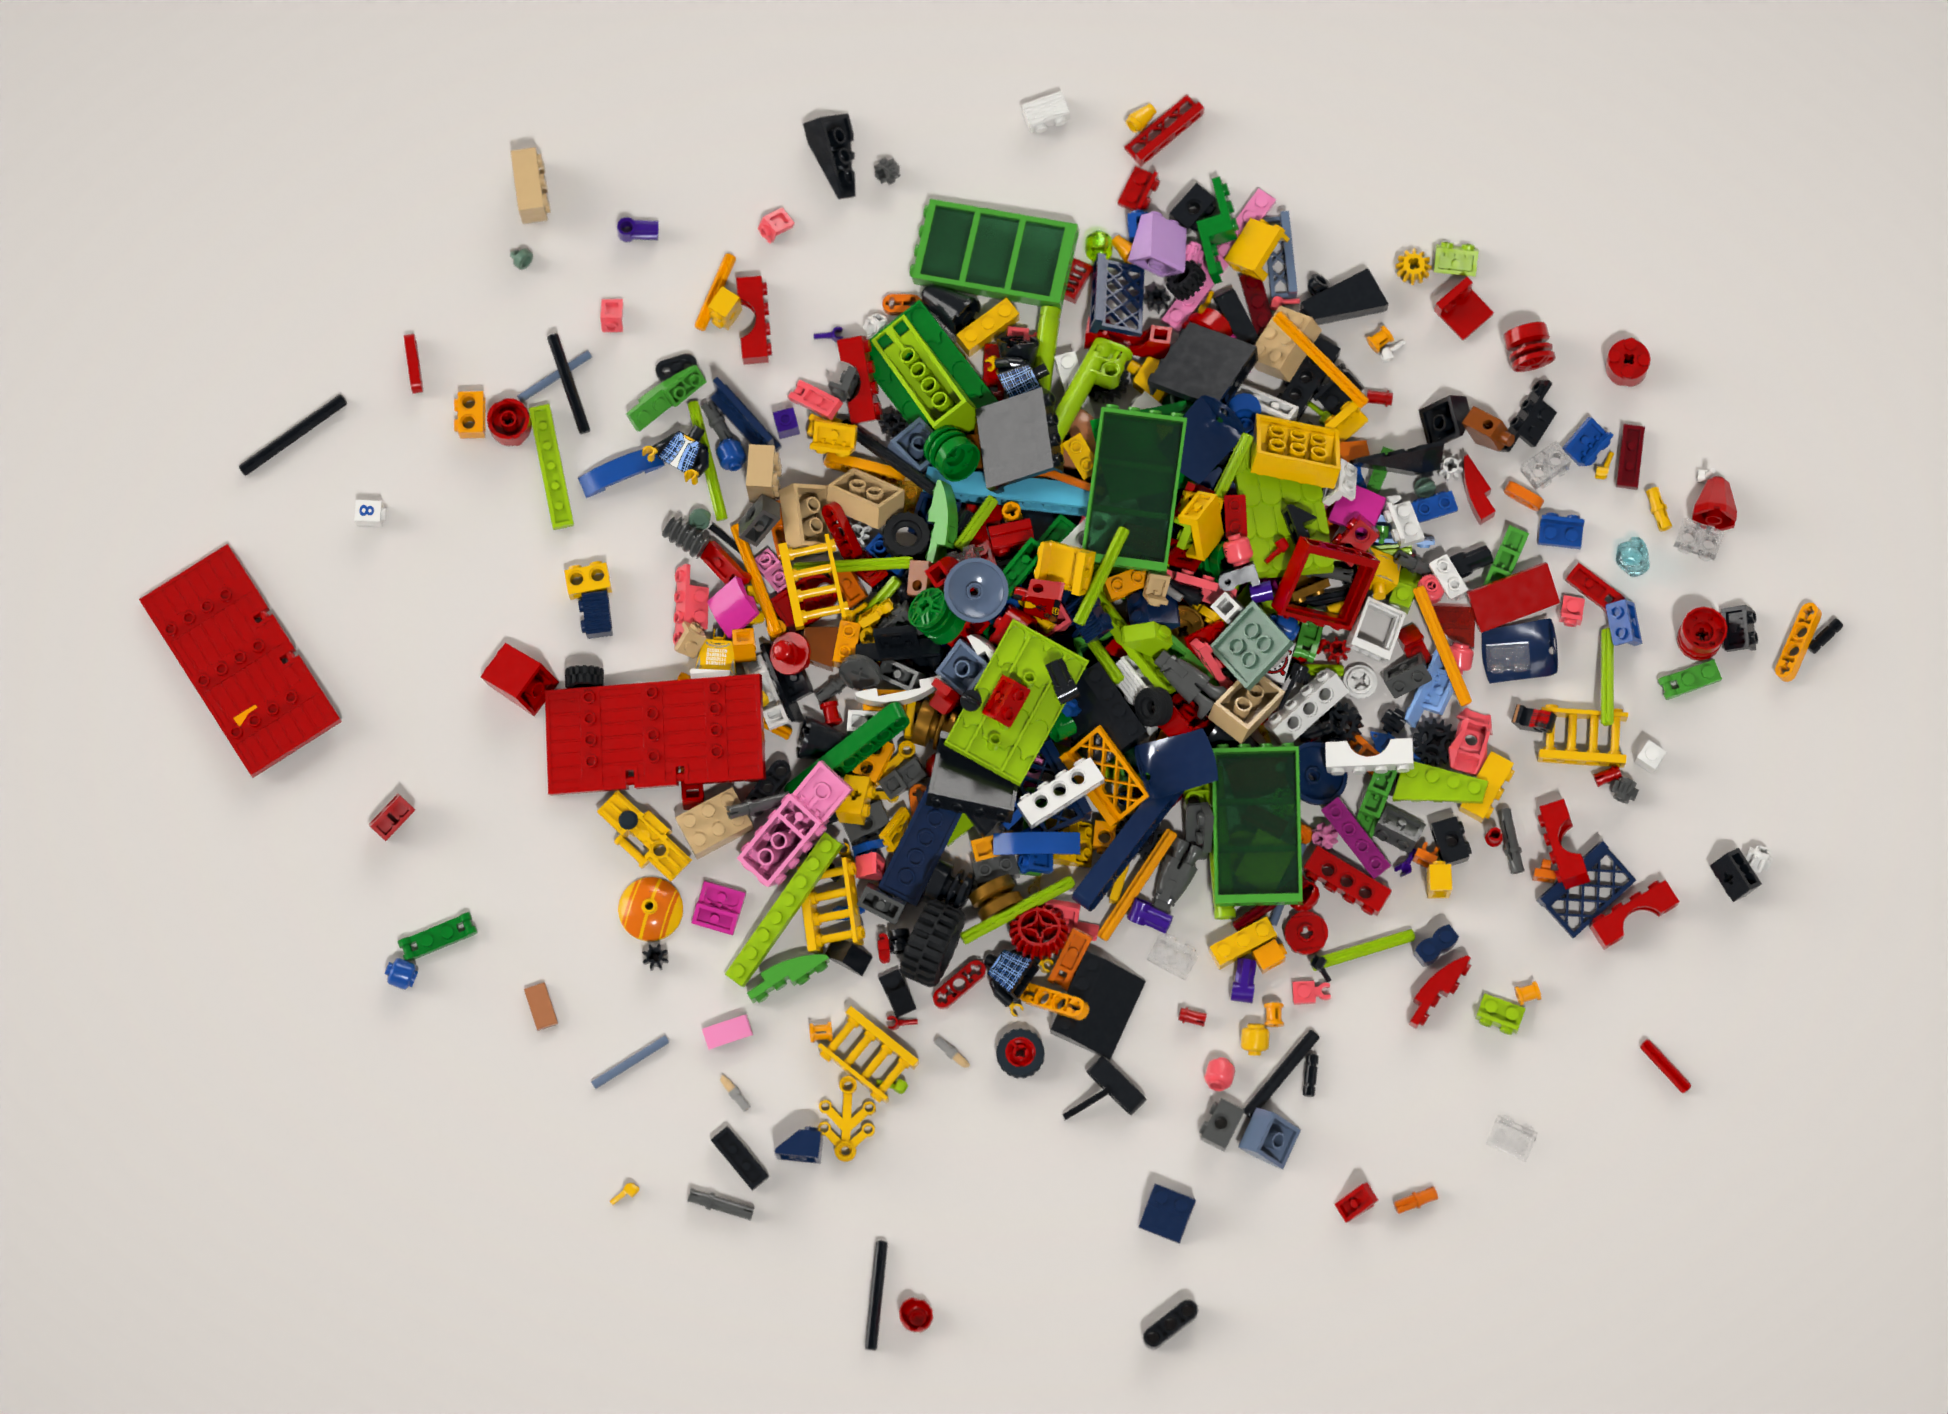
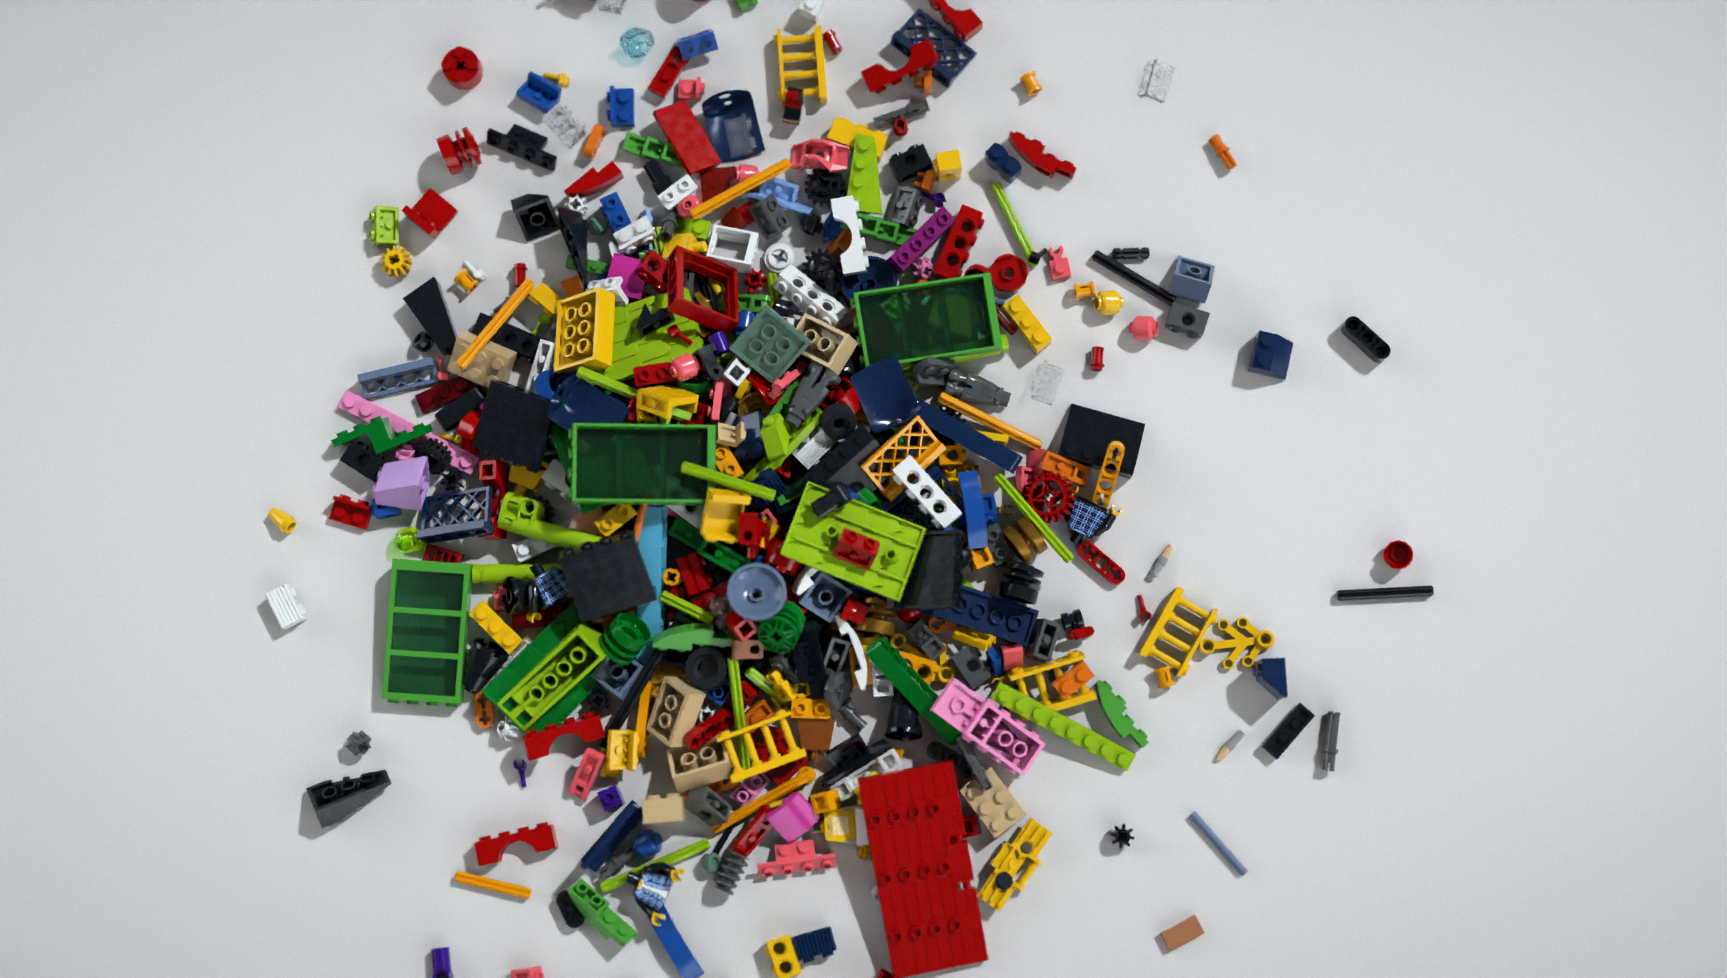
camera: 100 degrees left, 5 degrees up
(583, 676) = (877, 944): black tyre -> none
(630, 1189) = (1331, 823): yellow hand -> none
(654, 923) = (1063, 843): orange dish -> none
(691, 639) = (828, 850): tan bracket -> none
(718, 907) = (1066, 786): dark pink slope -> none
(724, 308) = (510, 872): yellow brick -> none
(727, 1031) = (1178, 760): bright pink slope -> none
(775, 224) = (422, 839): coral bracket -> none
(790, 653) = (828, 757): red plate -> none
(831, 713) = (875, 714): red bush -> none
(832, 926) = (1073, 679): none -> orange plate
(849, 956) = (1094, 660): black slope -> none
(850, 381) = (567, 745): dark grey bracket -> none
(857, 804) = (966, 673): yellow brick -> none
(897, 993) = (1117, 616): black slope -> none
(899, 1087) = (1200, 601): lime hand -> none
(932, 943) = (1076, 587): black tyre -> none
(971, 700) = (859, 581): black tile -> none
(1020, 1040) = (1156, 511): black wheel -> none
(1087, 1103) = (1188, 436): black piece -> none
(1106, 661) = (801, 470): lime axle -> none
(1123, 247) = (407, 517): light orange cone -> none
(1123, 1091) = (1168, 414): black beam -> none
(1144, 913) = (1014, 411): dark purple piece -> none
(1167, 134) = (292, 491): red fence -> none
(1243, 985) = (1065, 319): dark purple piece -> none
(1254, 248) = (395, 398): yellow panel -> none
(1269, 955) = (1034, 300): light orange brick -> none
(1332, 396) = (524, 314): black bracket -> none
(1356, 1202) = (1234, 199): red slope -> none
(1487, 430) = (540, 174): dark orange torso -> none
(1500, 1014) = (1051, 104): lime bracket -> none
(1607, 678) = (747, 50): lime axle -> none
(1624, 790) = (843, 25): dark grey gear -> none
(1630, 456) = (546, 57): dark red plate -> none
(1659, 509) = (590, 28): yellow pin -> none

